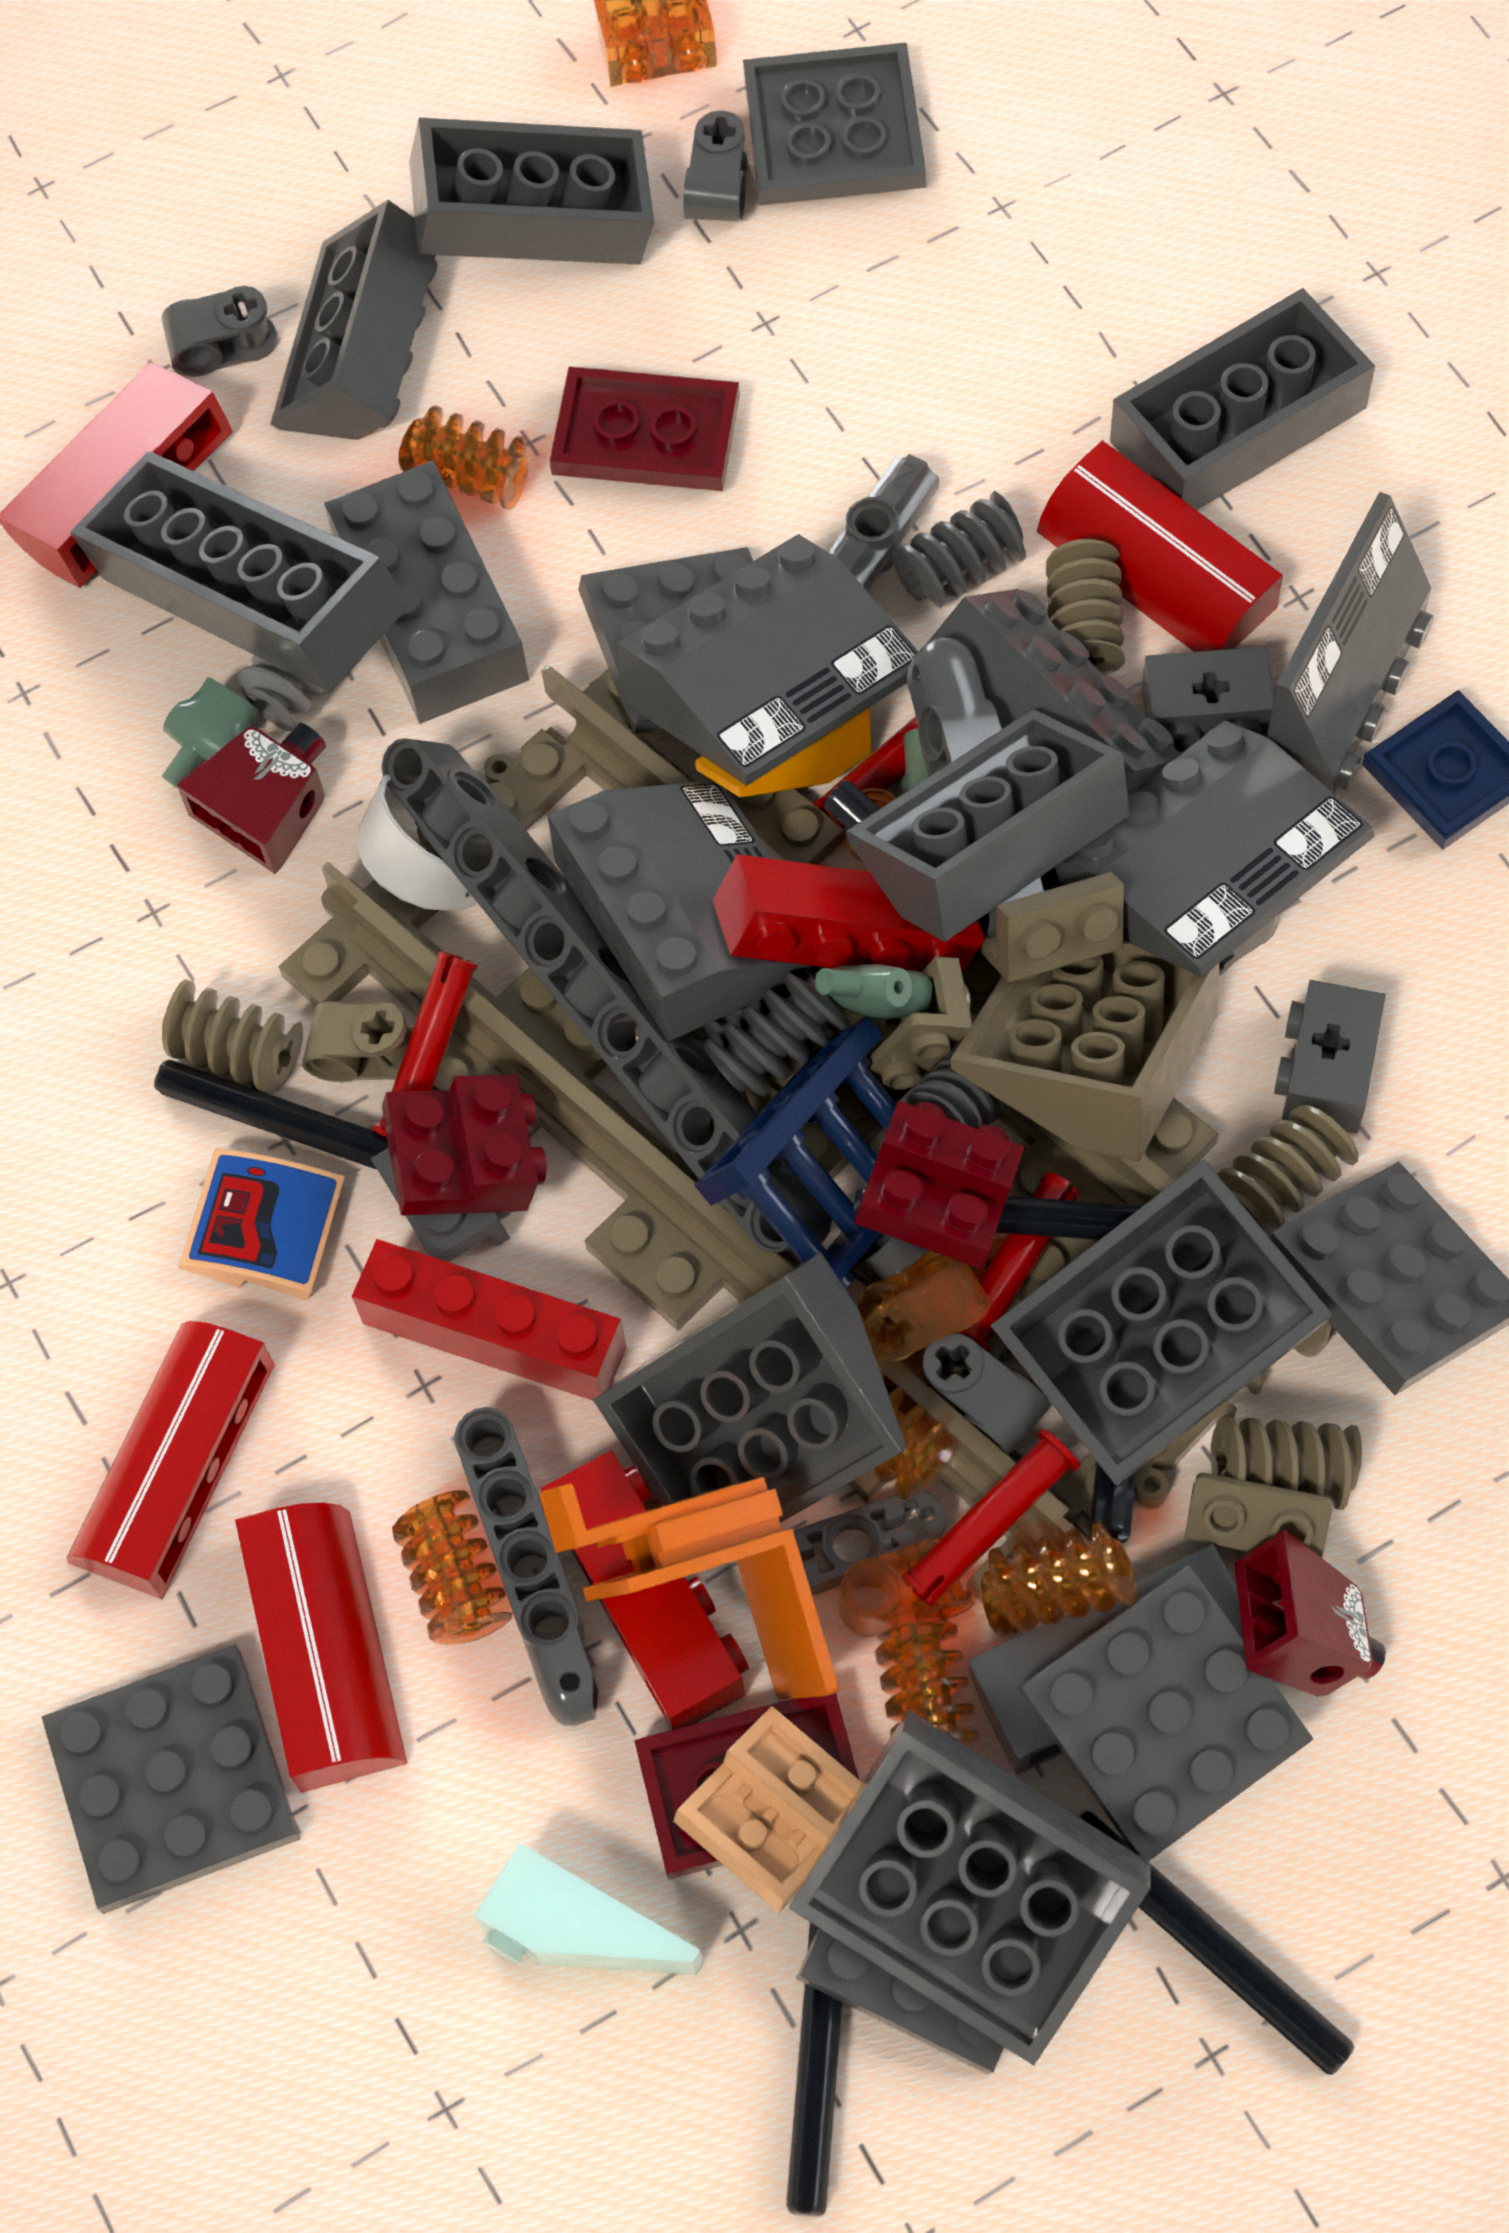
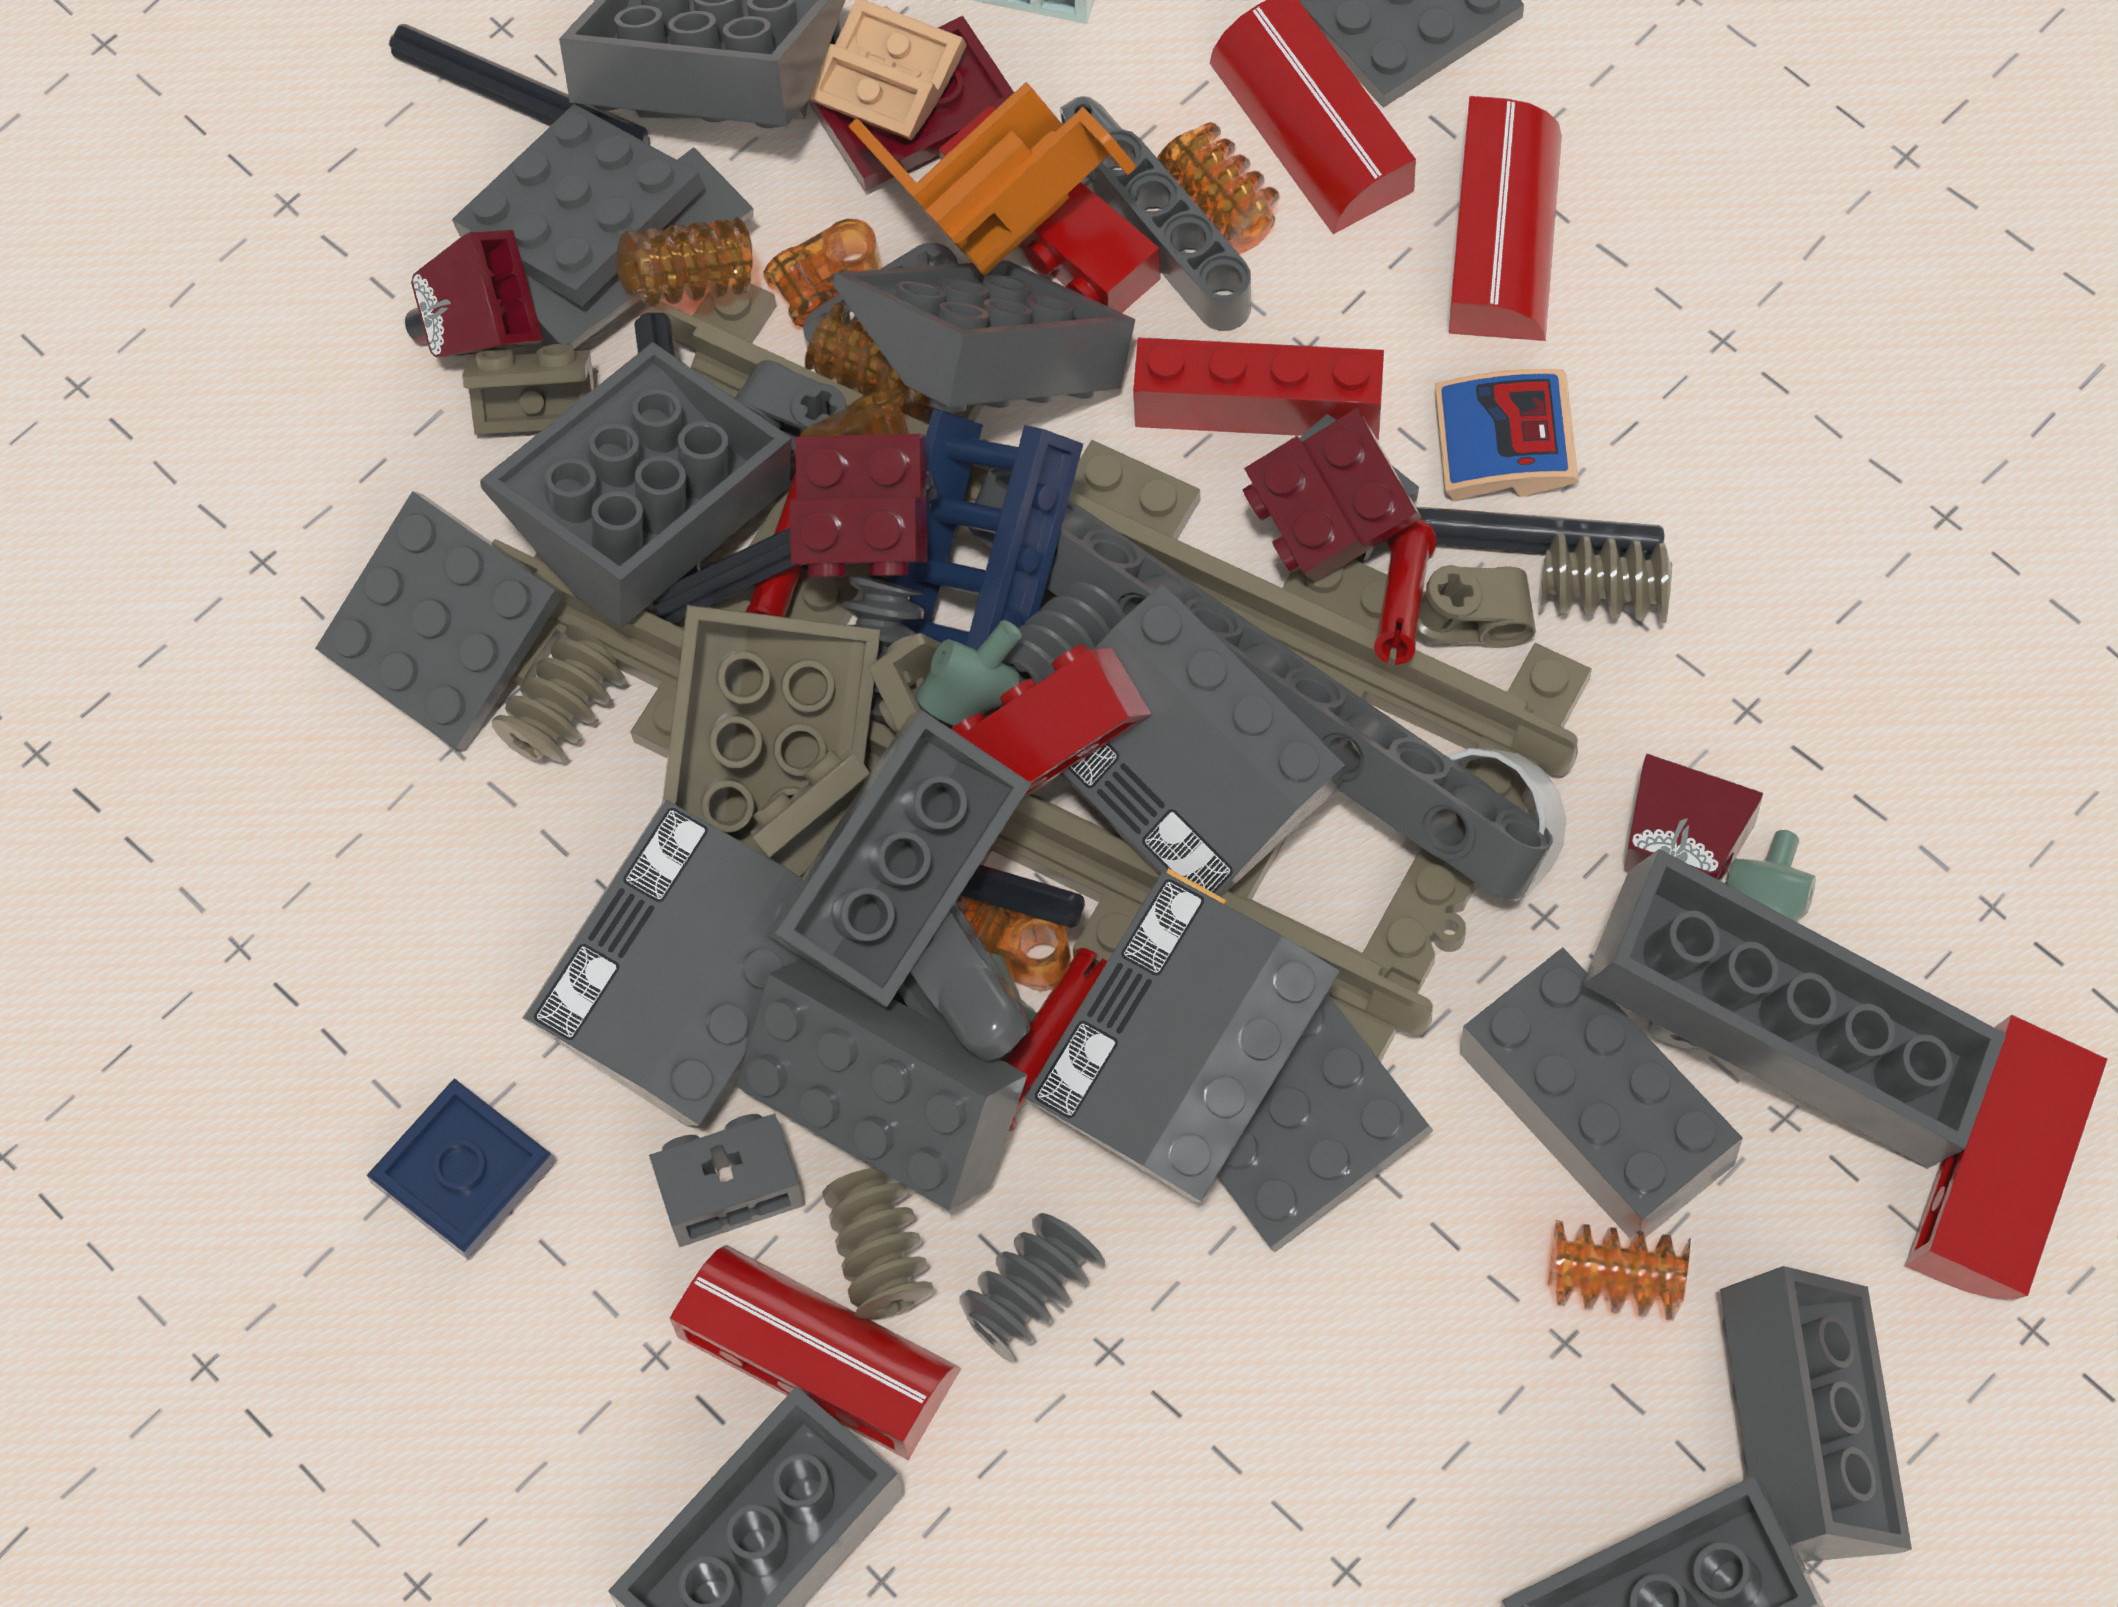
camera: 165 degrees right, 0 degrees up
(211, 331) = (1981, 1366): dark grey piece -> none
(645, 428) = (1433, 1369): dark red plate -> none
(889, 514) = (1124, 1324): dark grey piece -> none
(919, 1677) = (783, 187): clear orange piece -> none
(990, 1518) = (755, 301): red pin -> none
(1289, 1455) = (484, 447): dark tan piece -> none
(1336, 1022) = (520, 858): dark grey brick -> none
(1353, 650) = (584, 1223): dark grey slope -> none

